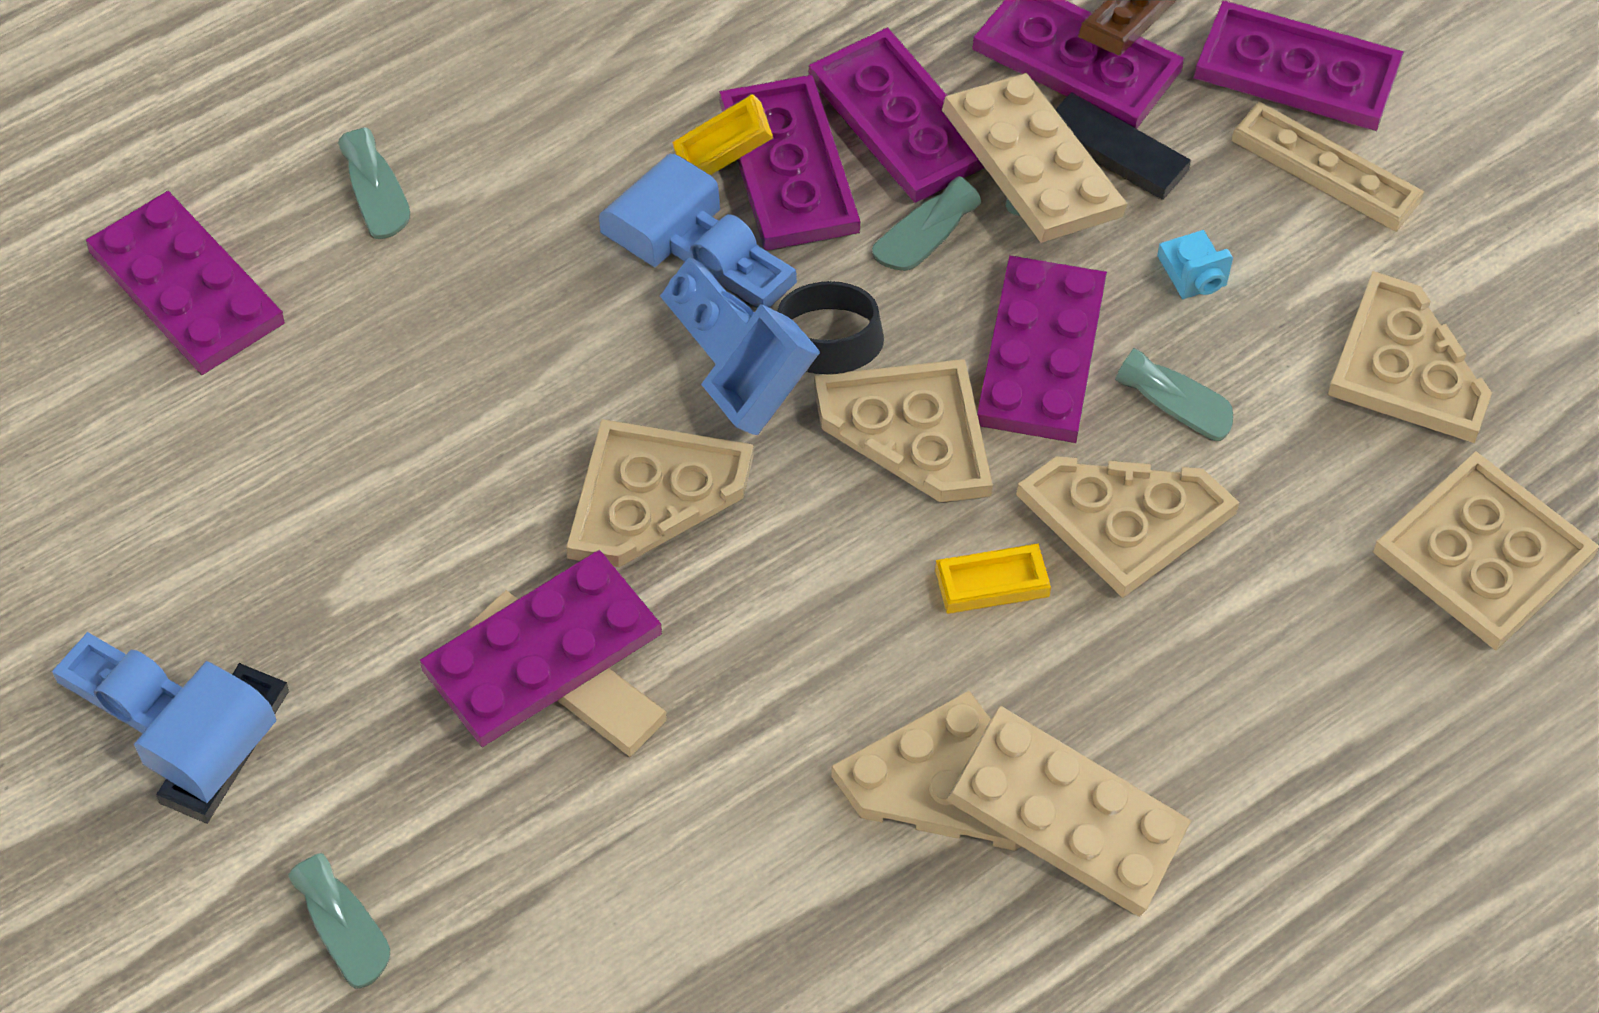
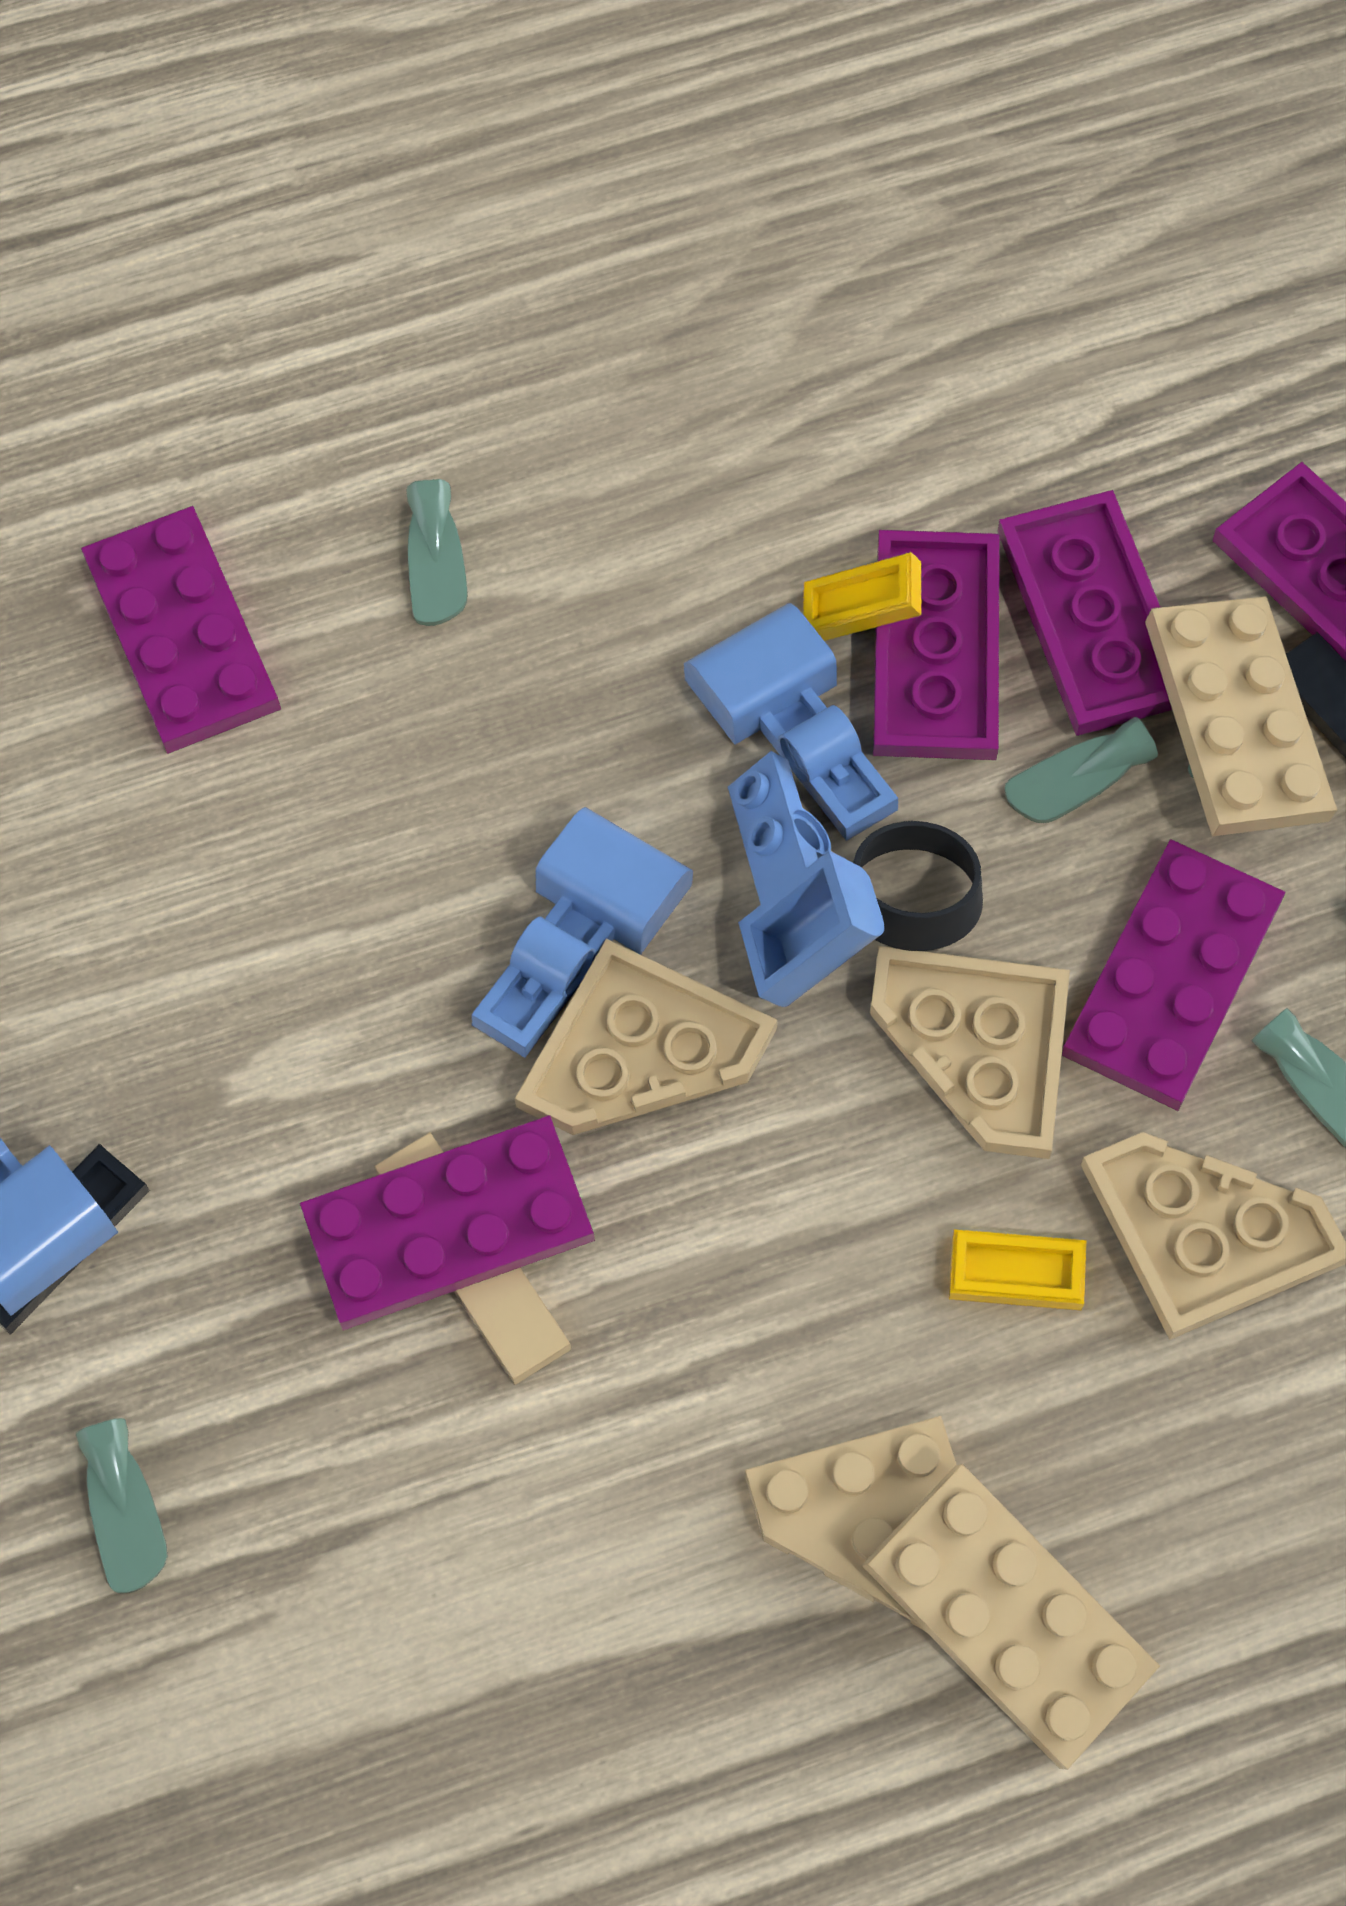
camera: 20 degrees right, 10 degrees up
(580, 386) = (601, 890): none -> medium blue plate

